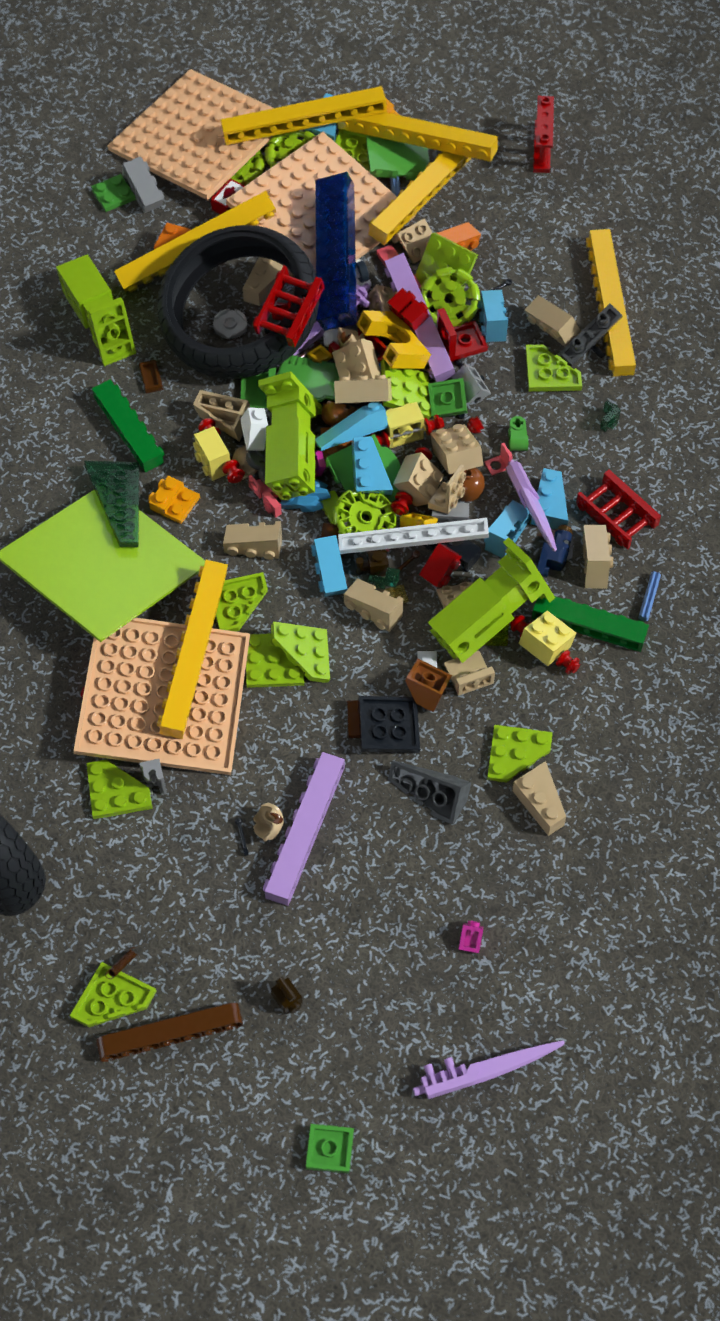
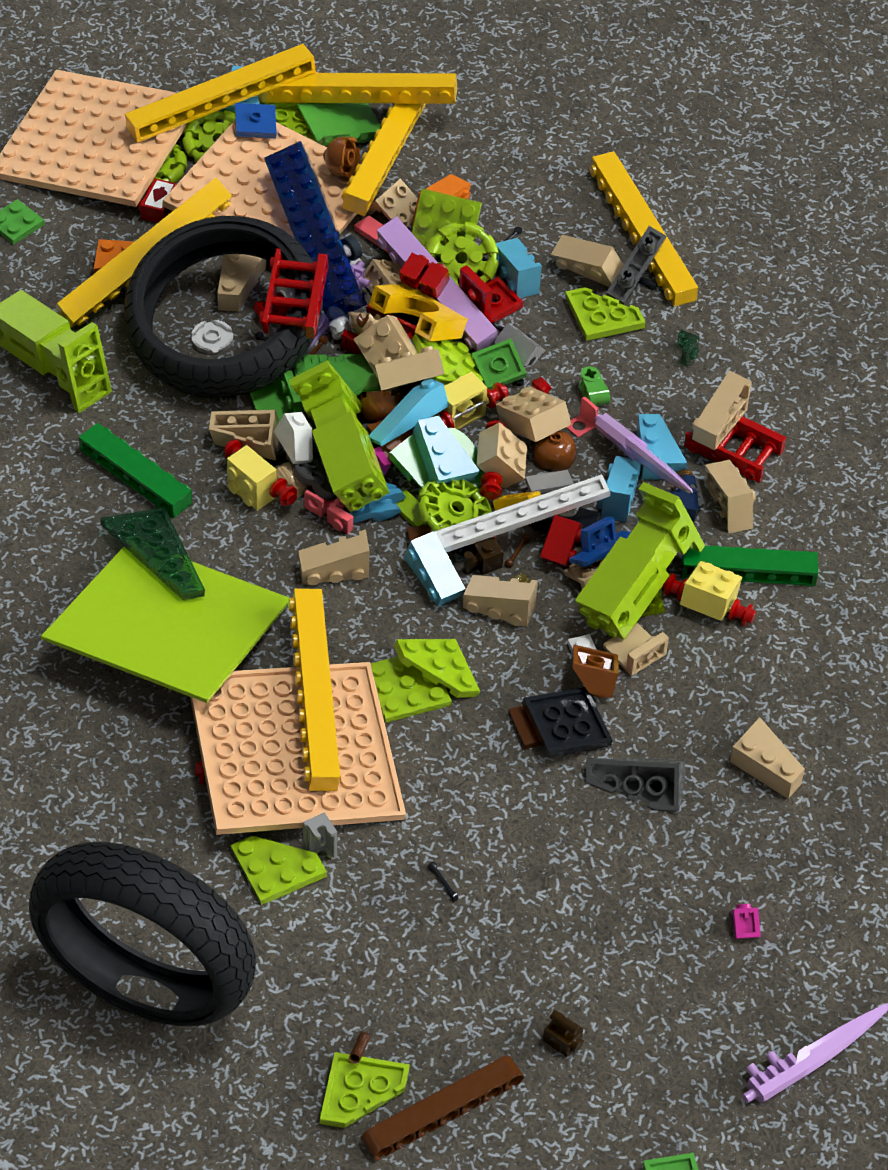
camera: 20 degrees left, 10 degrees down
(142, 184) = (51, 204): light grey wedge -> none
(150, 376) = (140, 412): reddish brown tile -> none
(173, 499) = (220, 539): light orange plate -> none
(239, 600) = (345, 628): lime plate -> none
(268, 821) = (470, 855): tan hair -> none
(304, 830) = (514, 855): lavender brick -> none
(320, 354) = (332, 348): yellow tile -> none
(324, 145) = (255, 120): none -> blue plate
(382, 190) = (342, 156): none -> dark orange cylinder
(390, 579) = (511, 568): clear green bracket -> none
(449, 493) = (542, 467): tan bracket -> none
(467, 572) = (597, 541): none -> blue bracket
(515, 751) = (718, 718): lime plate -> none
(543, 134) = (501, 65): red fence -> none
(611, 482) = (722, 411): none -> tan wedge
(649, 596) = (803, 525): medium blue axle -> none

